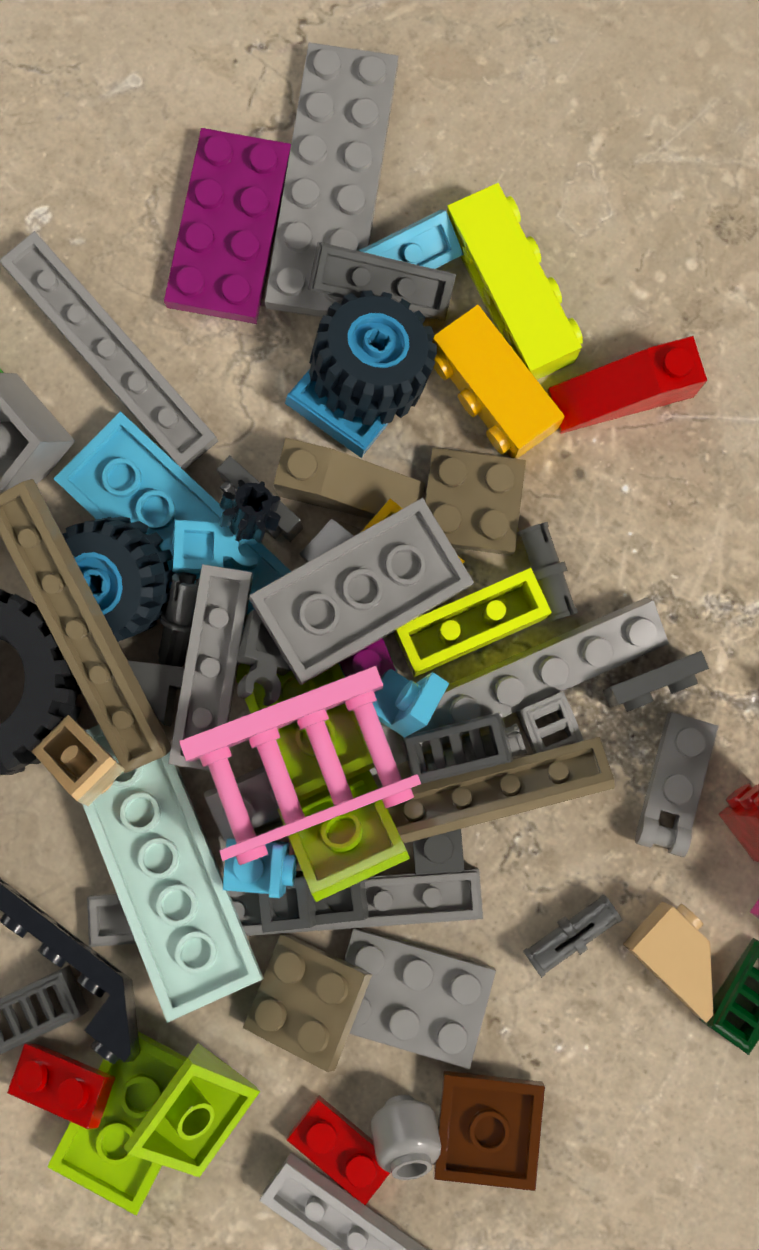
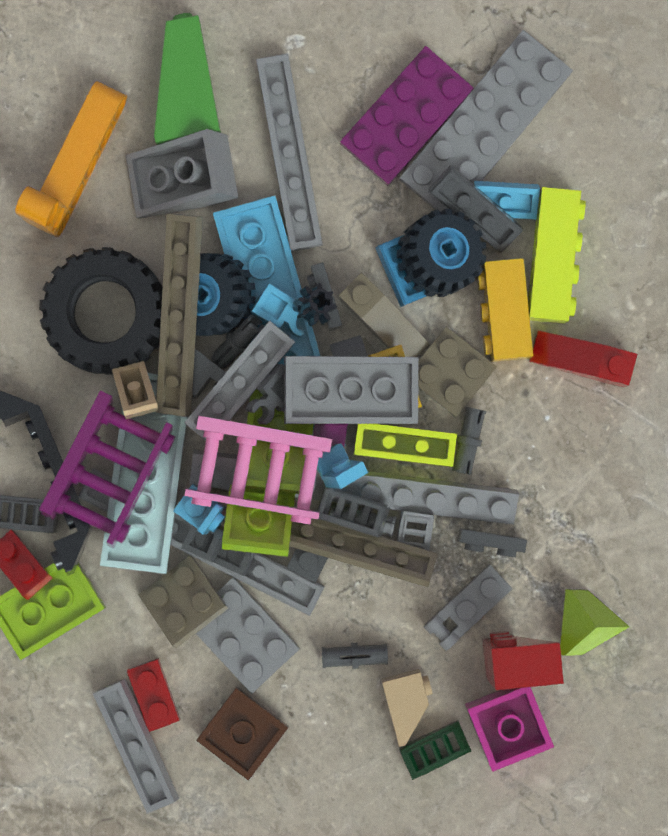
camera: 30 degrees right, 5 degrees up
(55, 917) = (74, 472): none -> magenta fence
(193, 1114) = (85, 624): lime slope -> none
(405, 1137) = (194, 708): light grey head -> none

